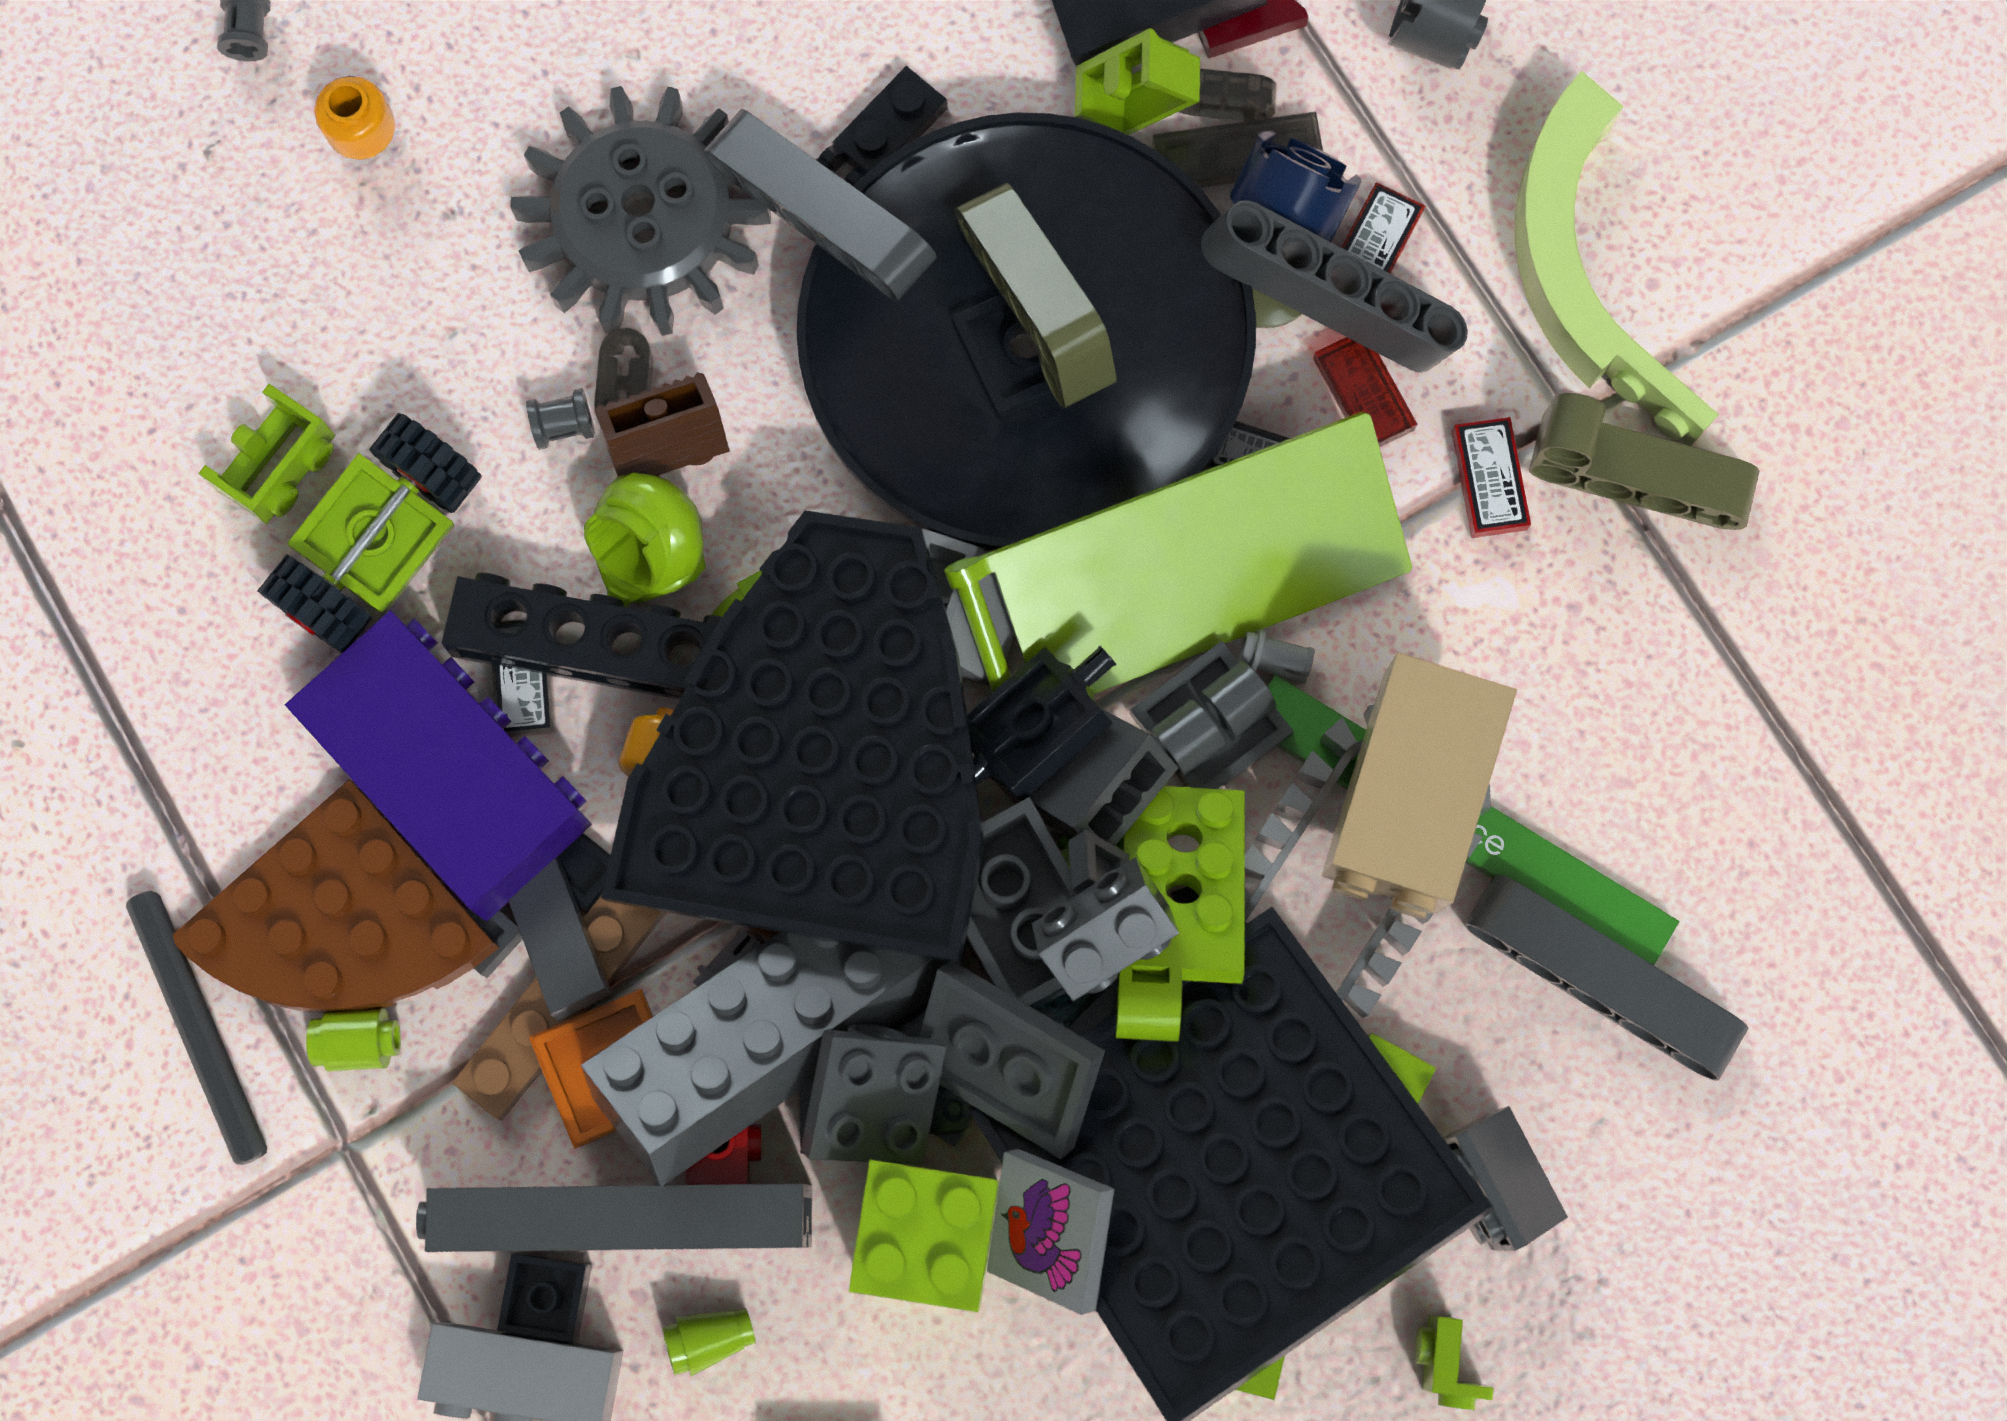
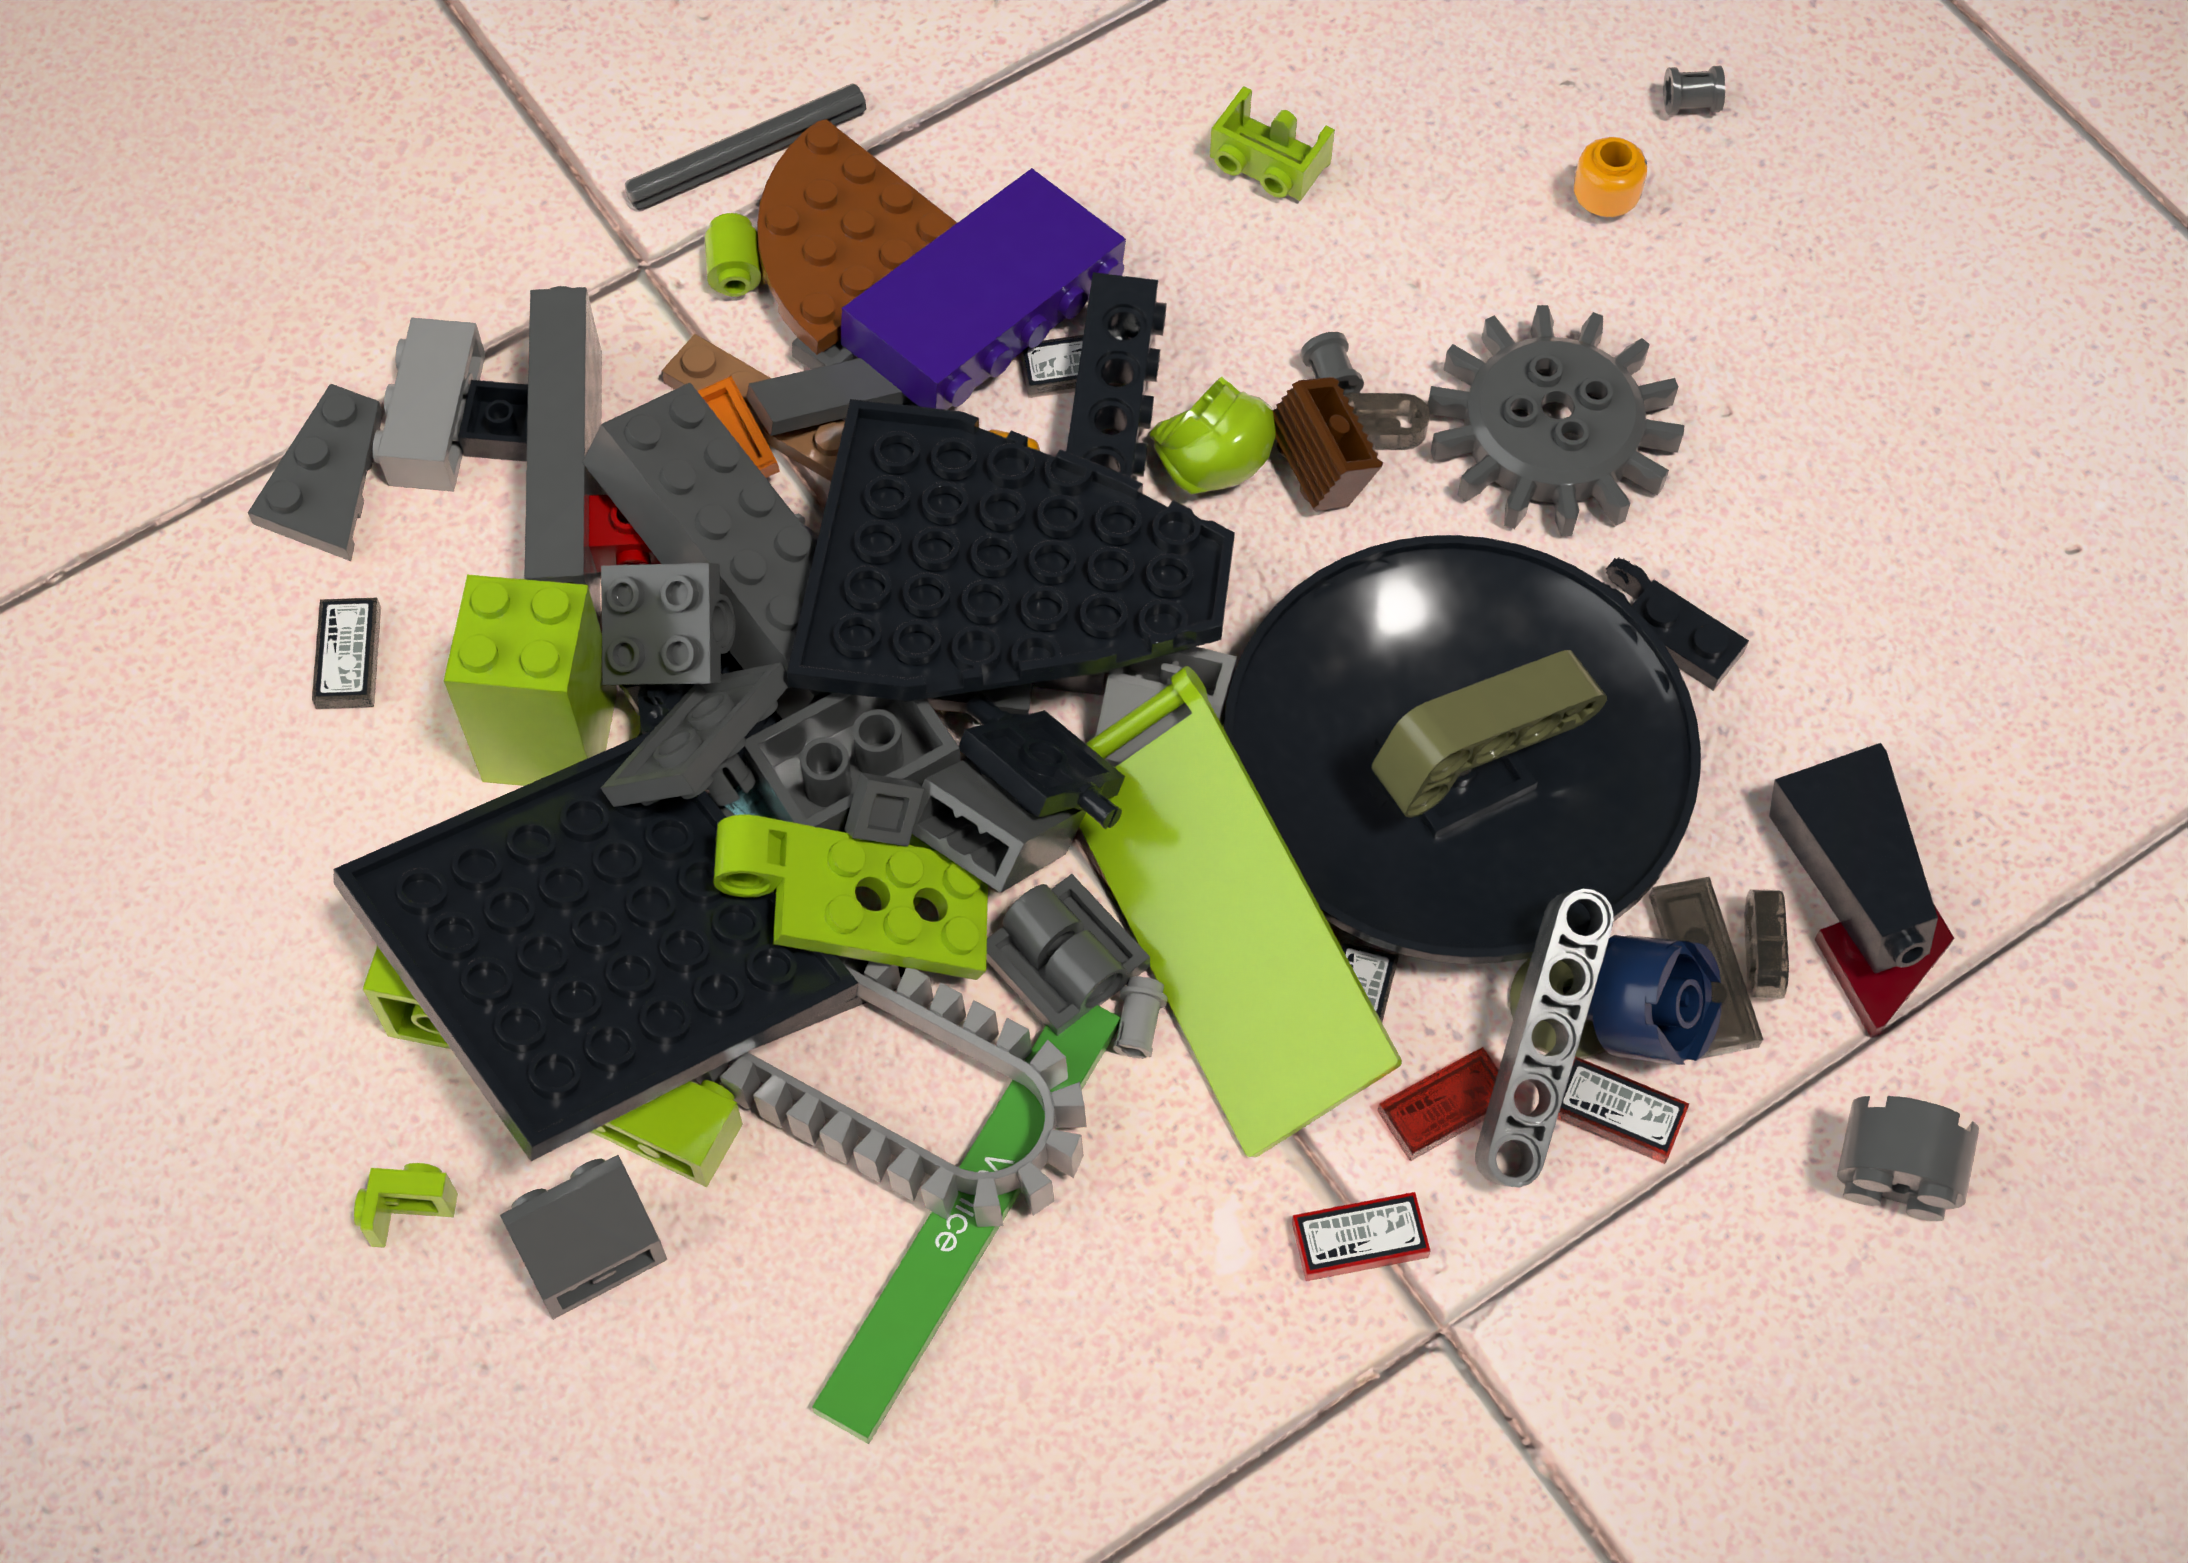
camera: 85 degrees right, 15 degrees down
(371, 533) = (1199, 221): plate -> none
(706, 1339) = (456, 542): lime cone -> none
(820, 205) = (1560, 537): beam -> none
(1050, 1231) = (530, 776): light grey tile -> none
(1105, 930) = (816, 792): brick -> none
(1127, 101) = (1752, 840): lime window -> none
(1418, 786) = (980, 1099): tan brick -> none
(1558, 284) = (1653, 1282): yellowish green arch -> none
(1606, 977) = (799, 1360): dark grey beam -> none
(1640, 468) = (1383, 1388): olive beam -> none

